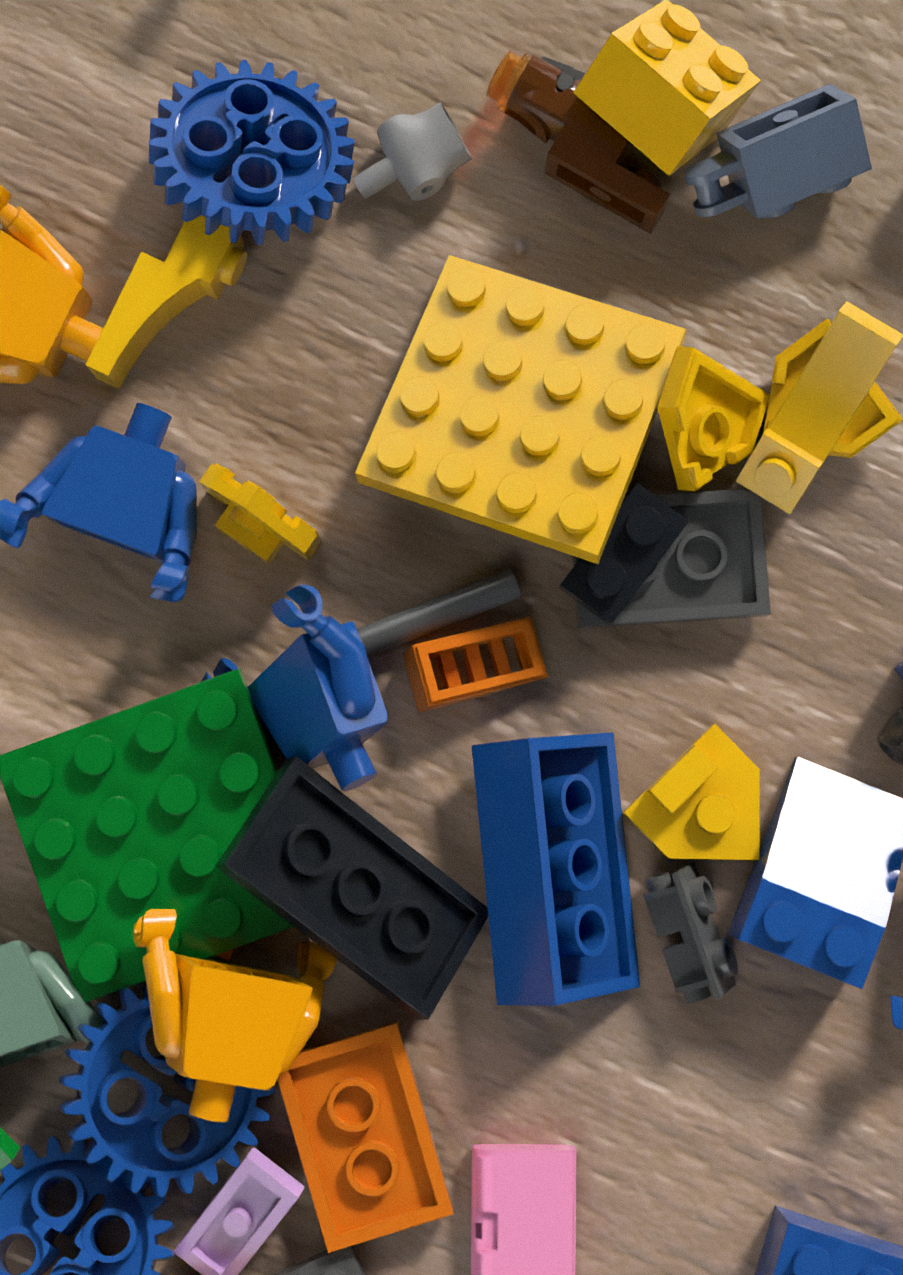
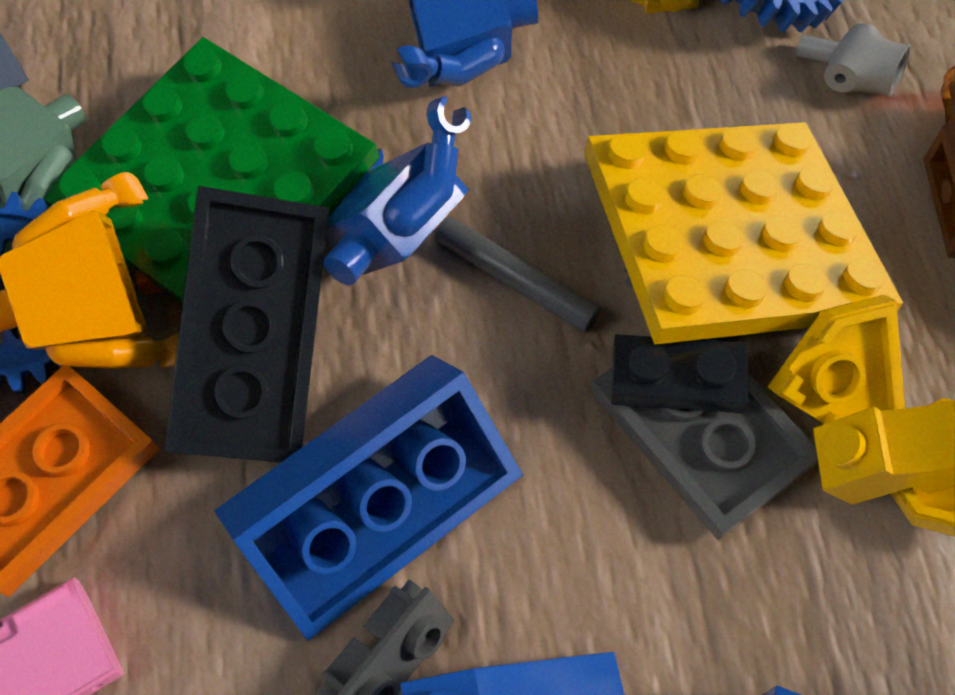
camera: 60 degrees right, 20 degrees down
(256, 518) = (502, 111): yellow plate -> none
(423, 681) = (501, 298): orange slope -> none
(703, 803) = (513, 588): yellow plate -> none

